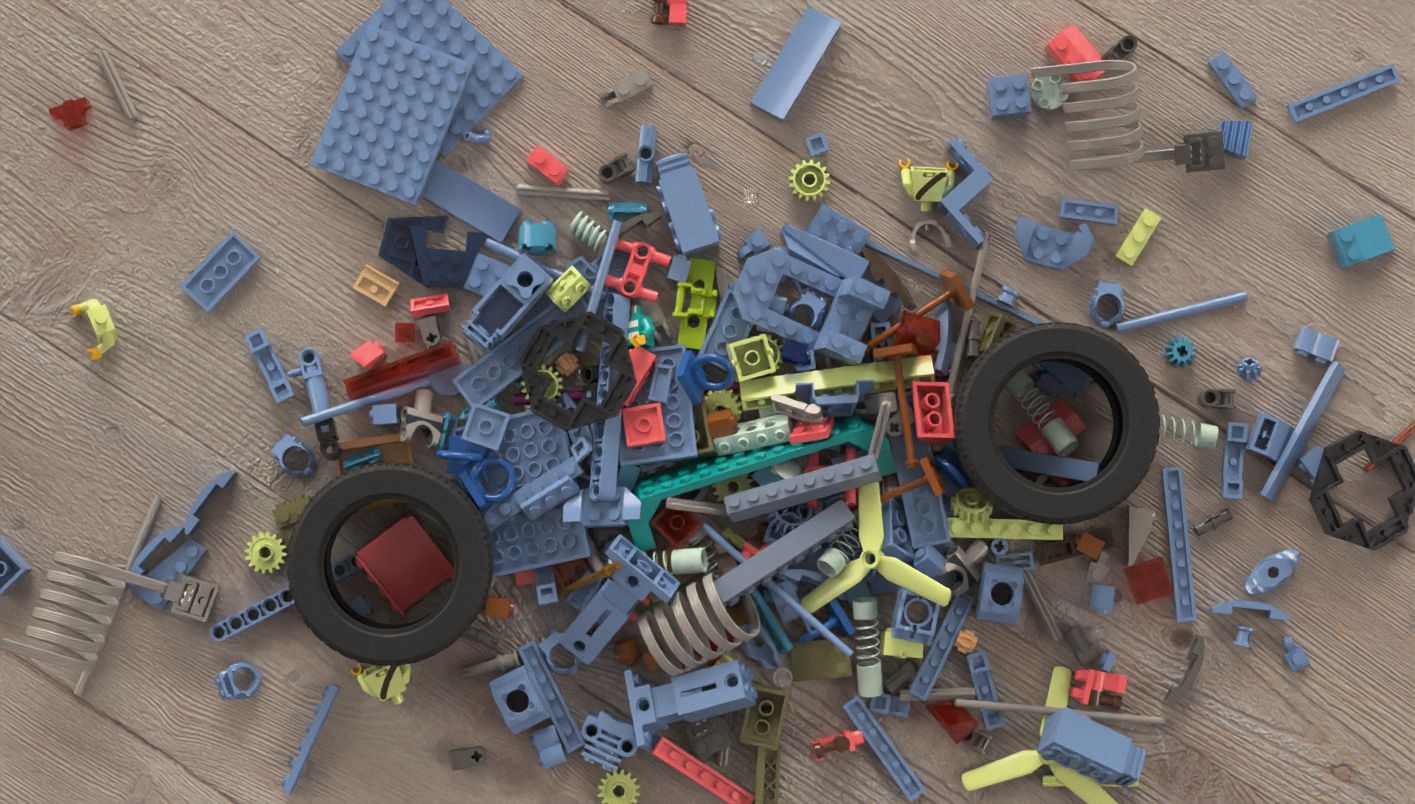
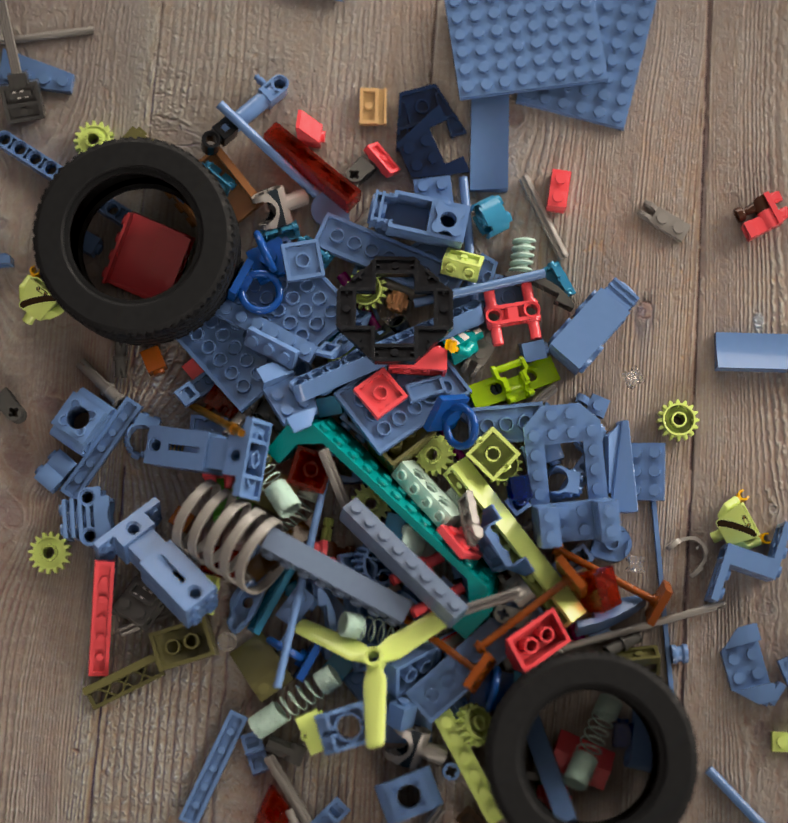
camera: 60 degrees right, 5 degrees down
(170, 535) = (45, 46): medium blue slope -> none
(193, 520) = (89, 68): medium blue slope -> none
(270, 365) = (255, 58): medium blue slope -> none
(284, 446) = (189, 106): medium blue piece -> none
(385, 415) = (266, 172): medium blue brick -> none
(405, 332) = (346, 152): clear red plate -> none
(477, 139) = (546, 120): medium blue arm -> none
(617, 169) = (590, 251): dark grey piece -> none
(627, 651) = (175, 492): dark orange head -> none
(645, 166) = (627, 263): medium blue piece -> none
(722, 423) = (420, 461): dark orange brick -> none
(817, 144) = (713, 410): medium blue plate -> none
(836, 742) = (195, 722): hips -> none
(885, 275) = (634, 533): dark brown slope -> none
(941, 646) = (332, 768): medium blue tile -> none
(965, 641) = (349, 789): light nougat gear -> none
(1030, 560) = (455, 808): medium blue tile -> none
(1107, 289) = (739, 744): medium blue piece -> none

